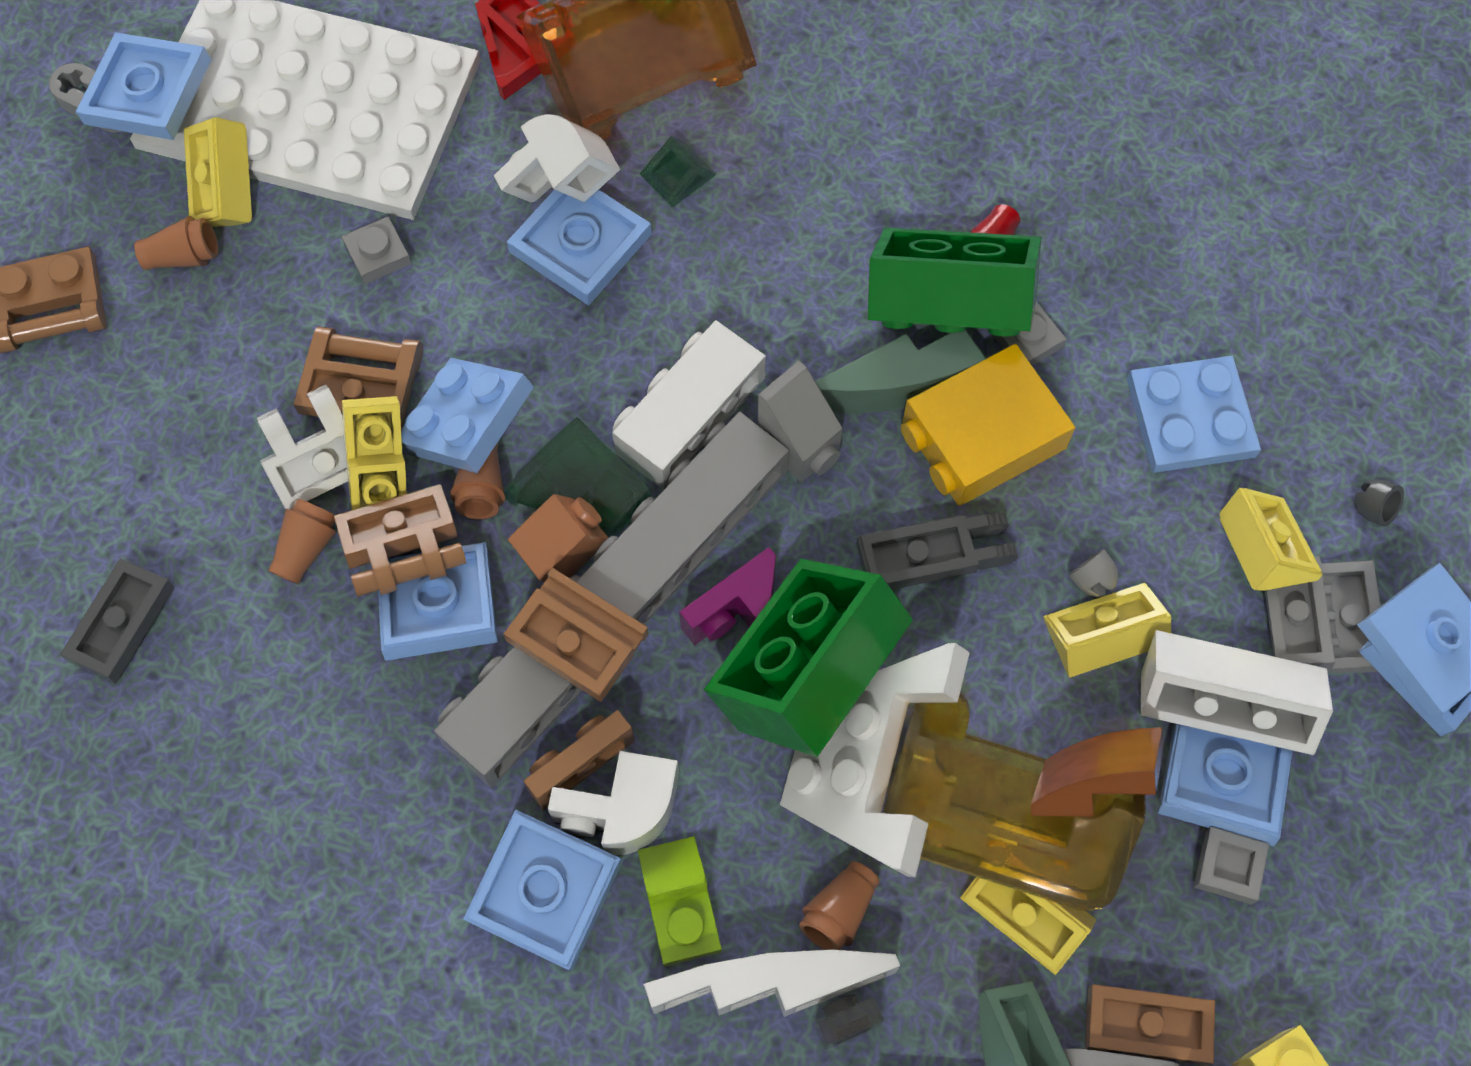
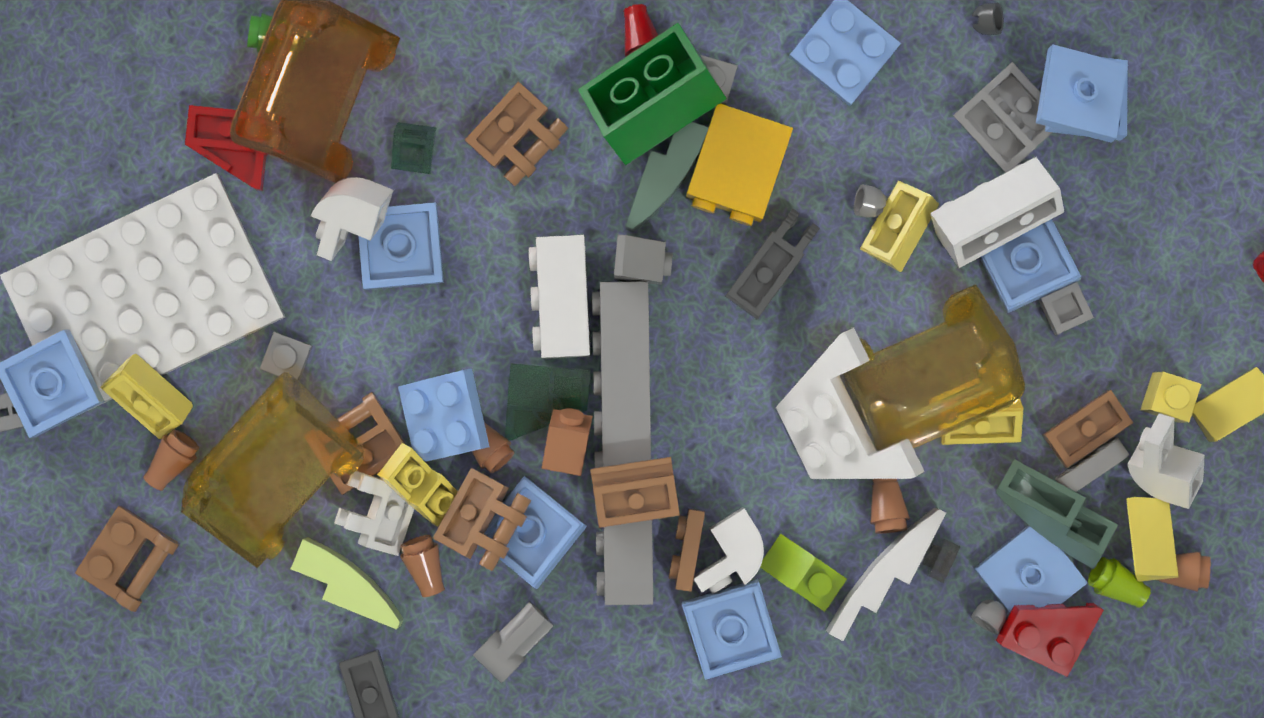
camera: 45 degrees left, 20 degrees up
(209, 490) = (346, 583): none -> yellowish green slope
(247, 318) = (268, 469): none -> clear yellow windscreen
(294, 694) = (508, 647): none -> light grey piece
(740, 593) = (694, 379): magenta slope -> none
(787, 217) = (506, 127): none -> medium nougat plate
(809, 655) = (766, 395): green brick -> none
(1099, 765) = (966, 327): dark orange slope -> none
(1268, 541) = (948, 101): light yellow slope -> none

